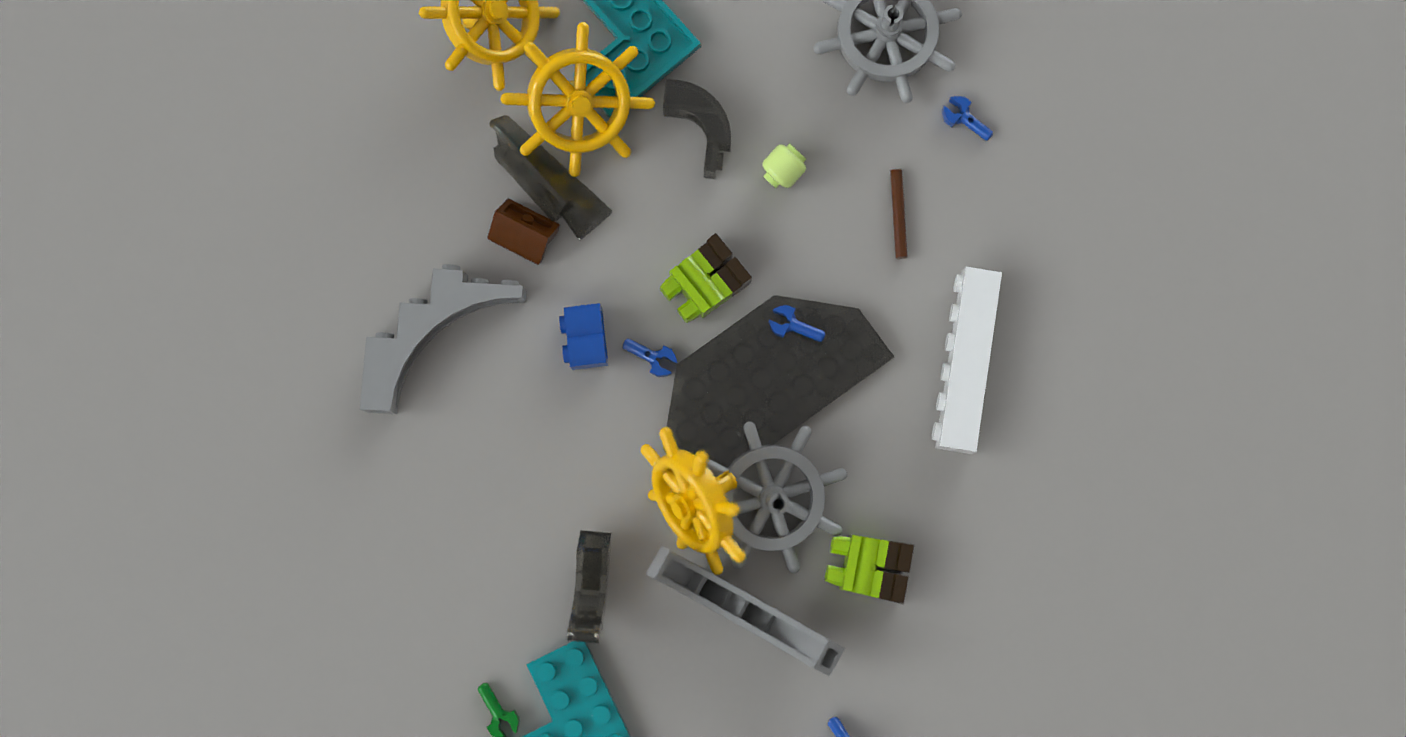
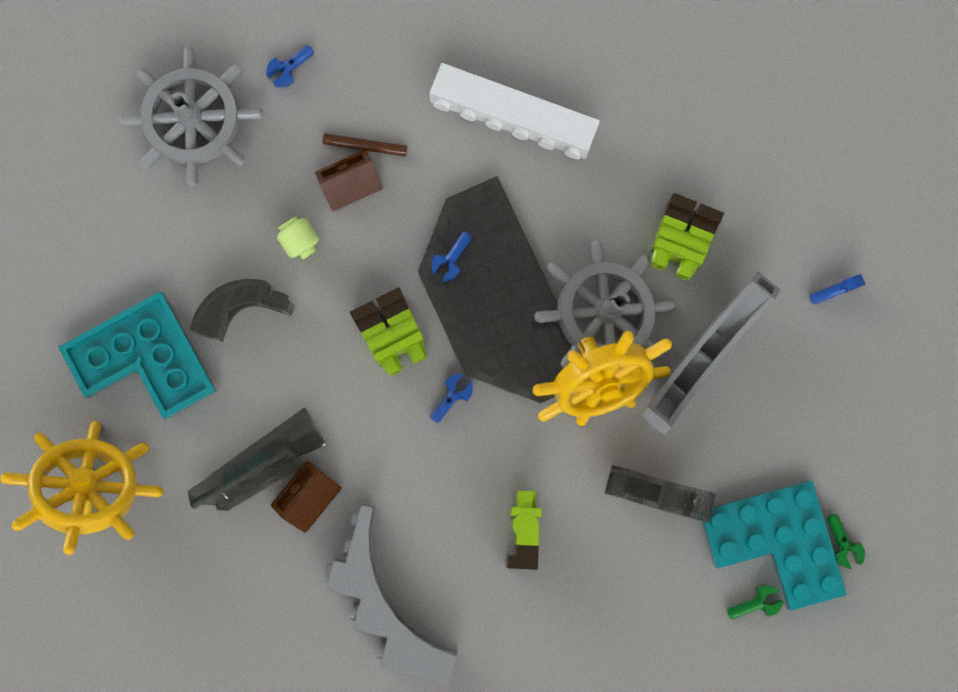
camera: 85 degrees left, 0 degrees up
(526, 455) = (526, 532): none -> lime hips
(578, 100) = (191, 416): yellow piece -> none
(585, 336) = (421, 455): blue brick -> none
(856, 204) = (349, 180): none -> reddish brown panel

